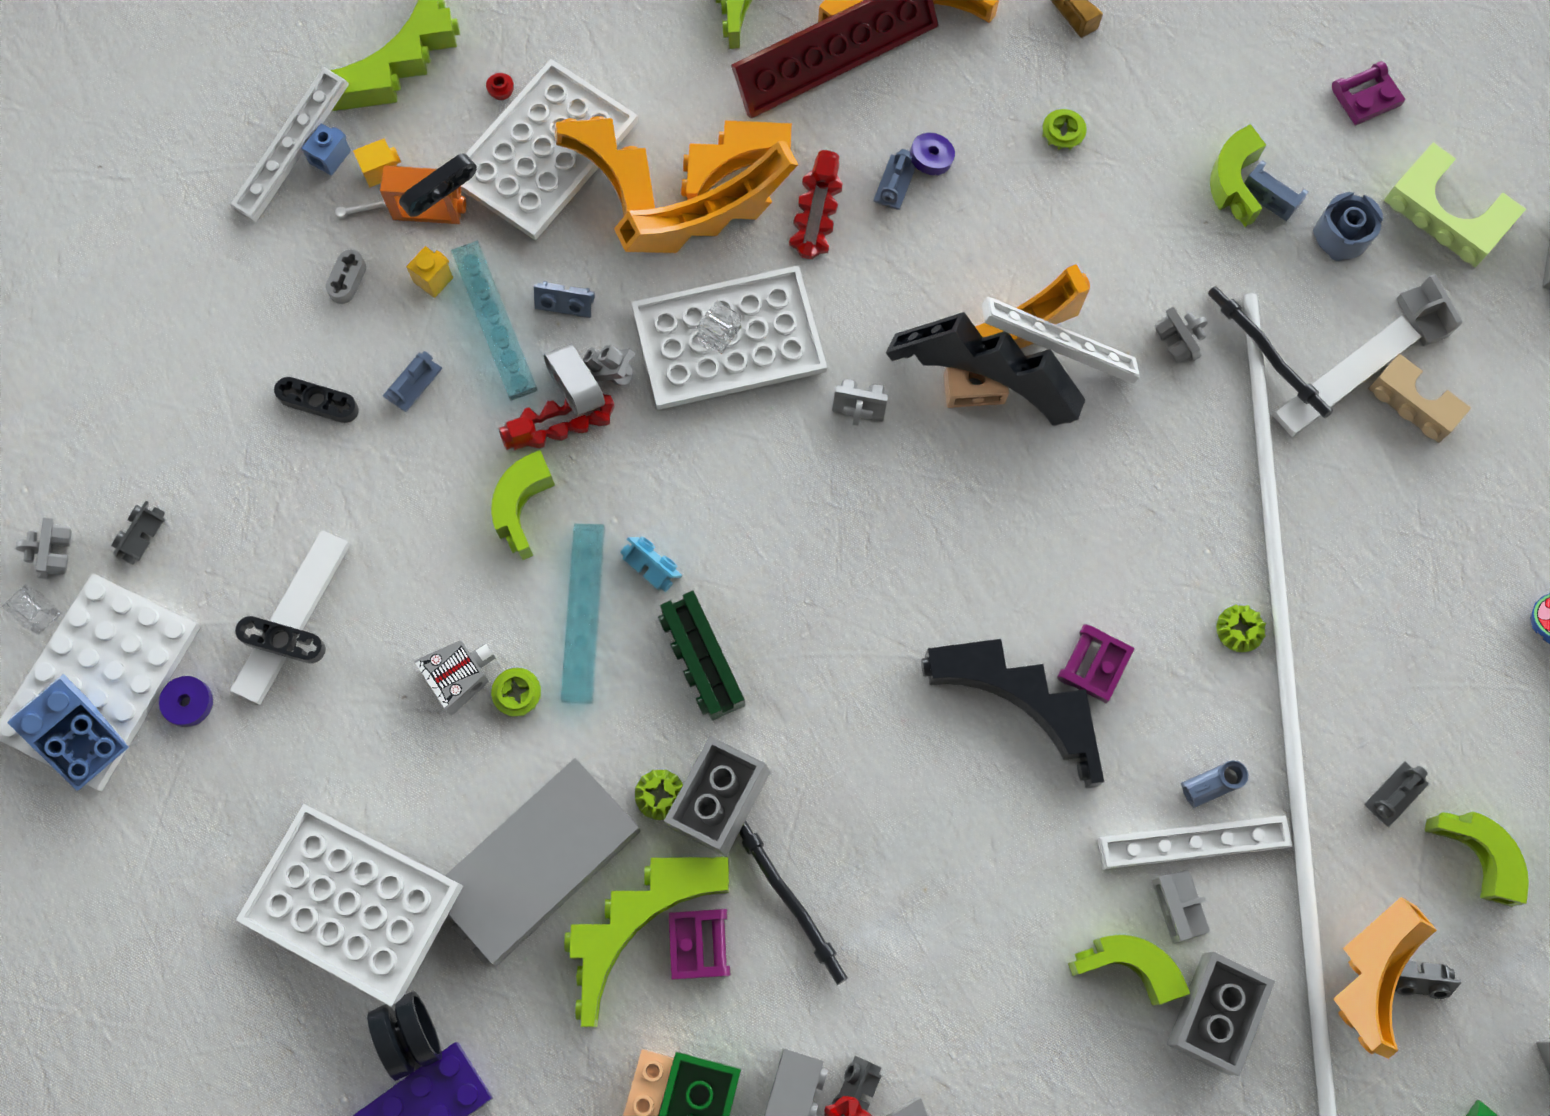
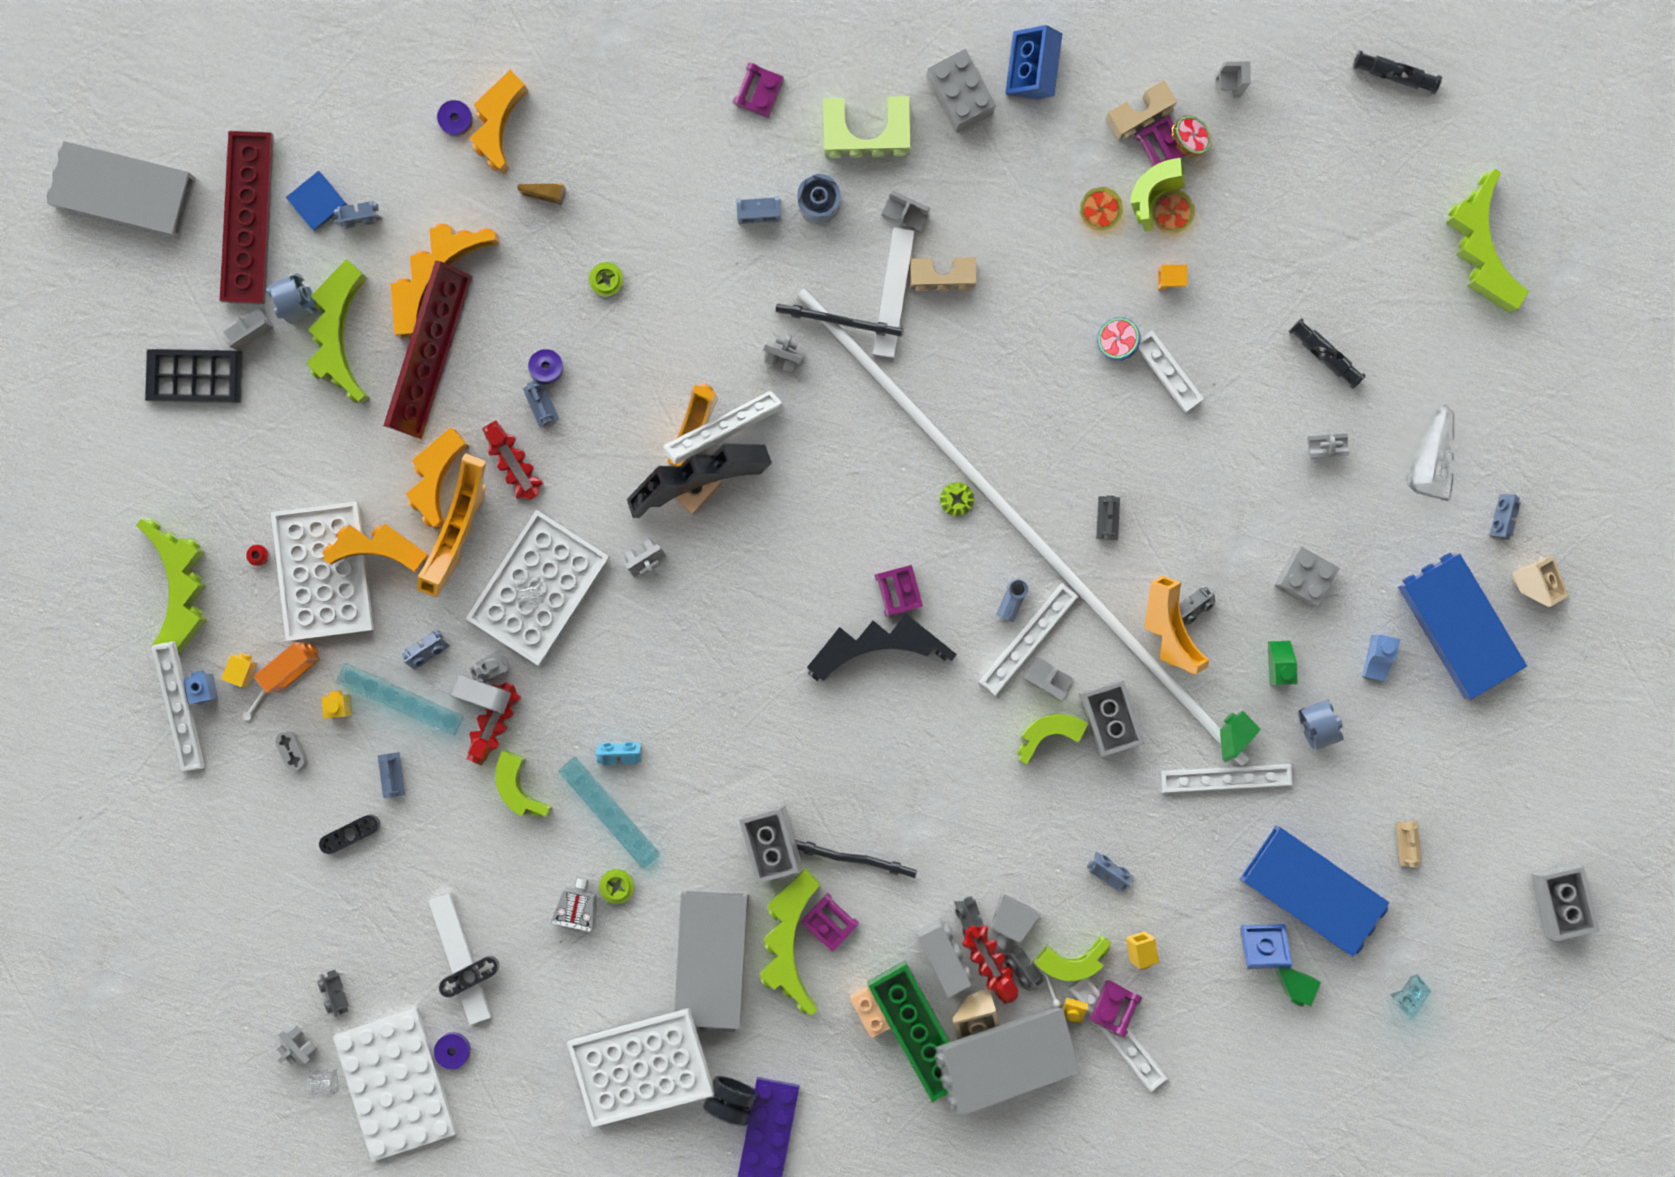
camera: 40 degrees left, 15 degrees up
(68, 732) = (412, 1123): medium blue slope -> none
(438, 185) = (298, 661): black beam -> none
(652, 781) = (730, 864): lime gear -> none
(702, 656) = (693, 778): dark green brick -> none
(1226, 179) = (717, 209): lime arch -> none
(1501, 858) = (1189, 508): lime arch -> none

